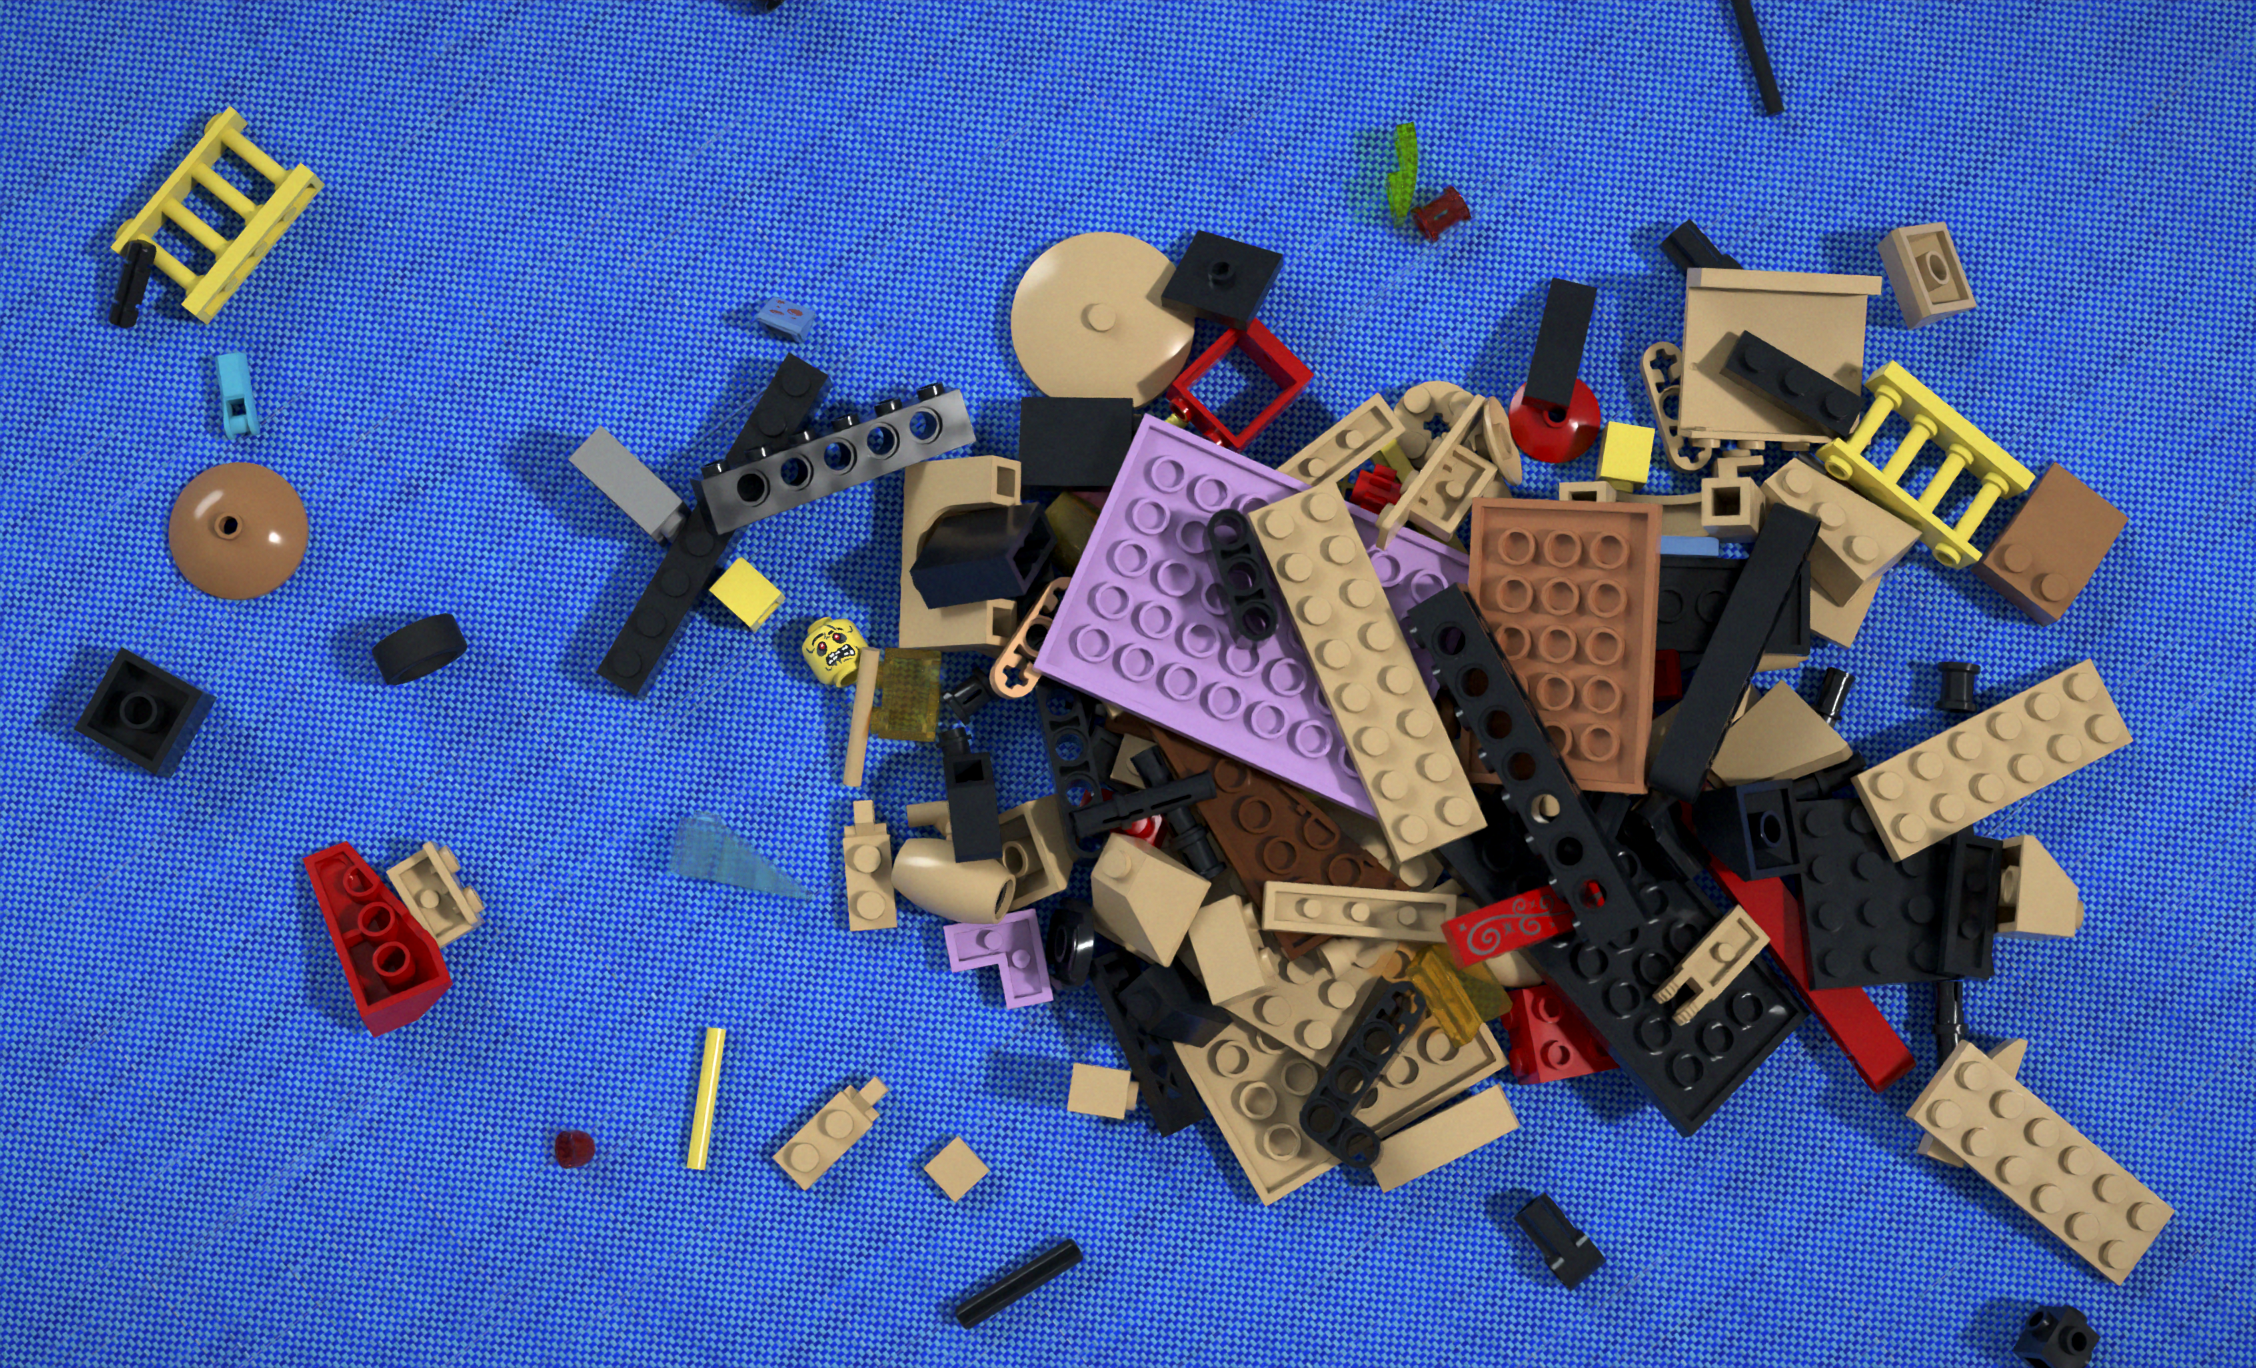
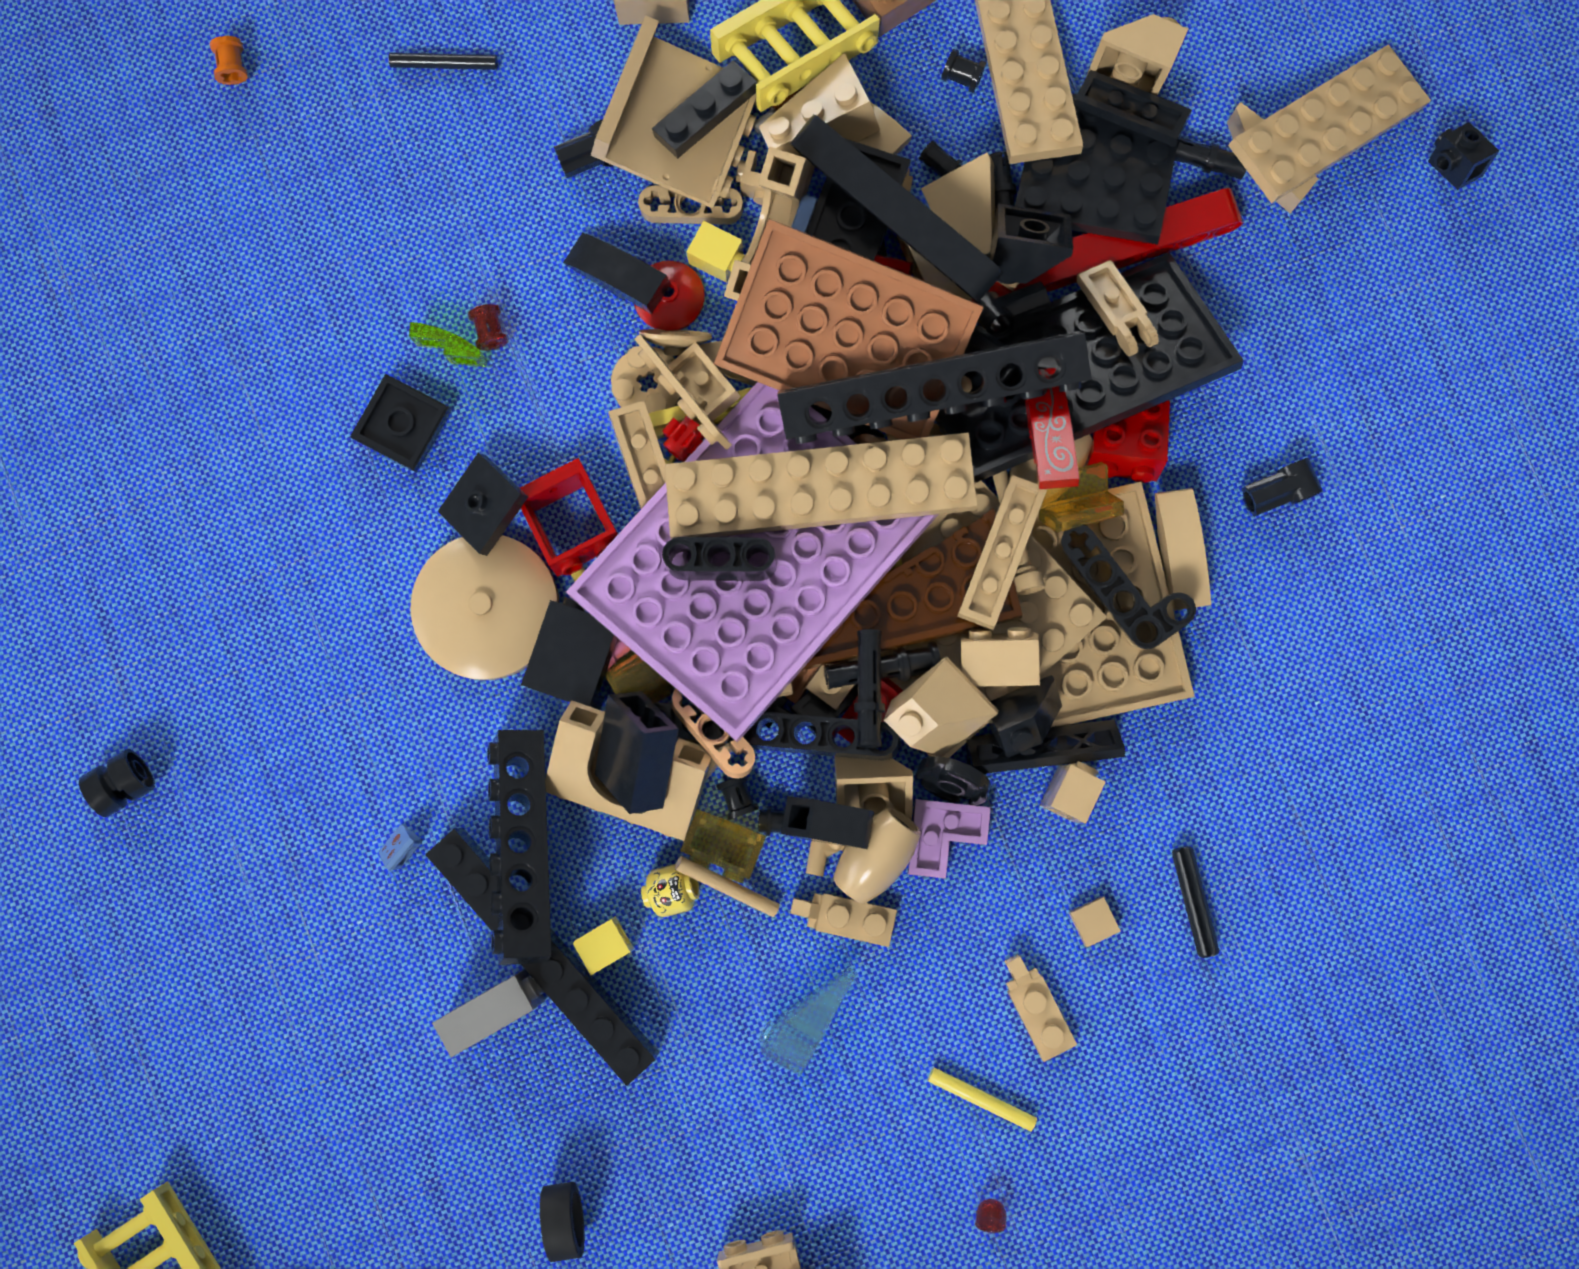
camera: 70 degrees left, 0 degrees up
(1290, 150) = (400, 423): none -> black plate

